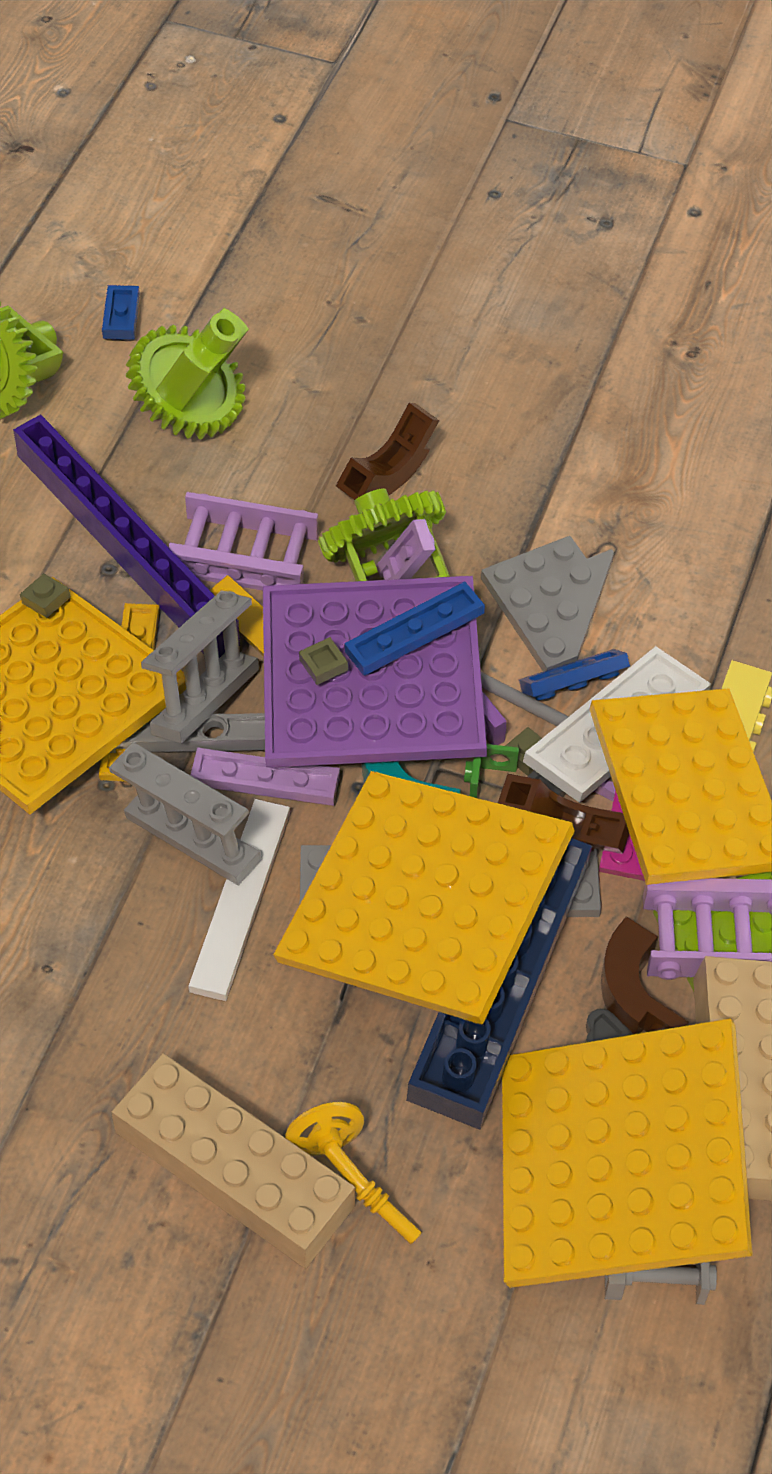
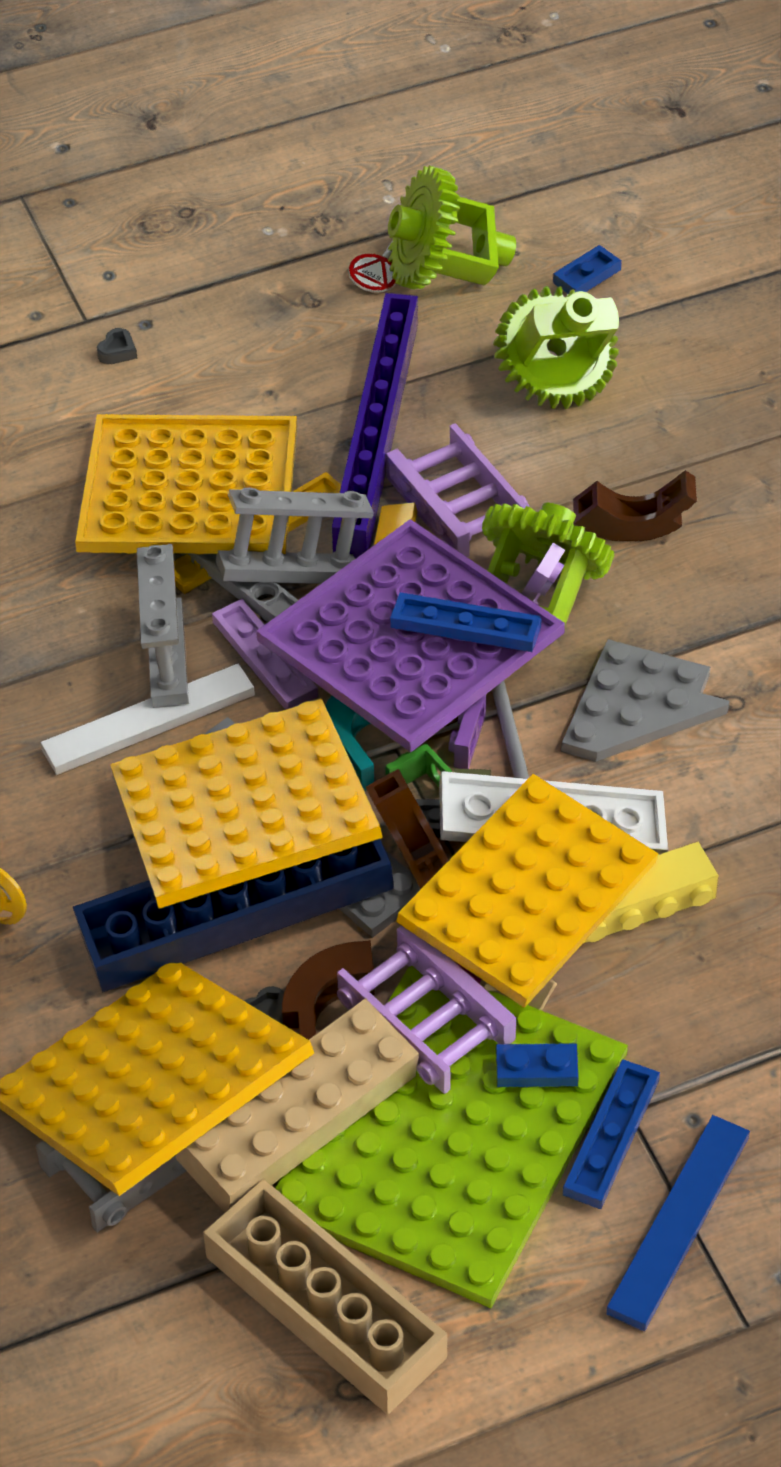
camera: 50 degrees right, 5 degrees down
(45, 595) = (270, 422): olive plate -> none
(323, 660) = (373, 594): olive plate -> none
(574, 674) = (574, 762): blue plate -> none

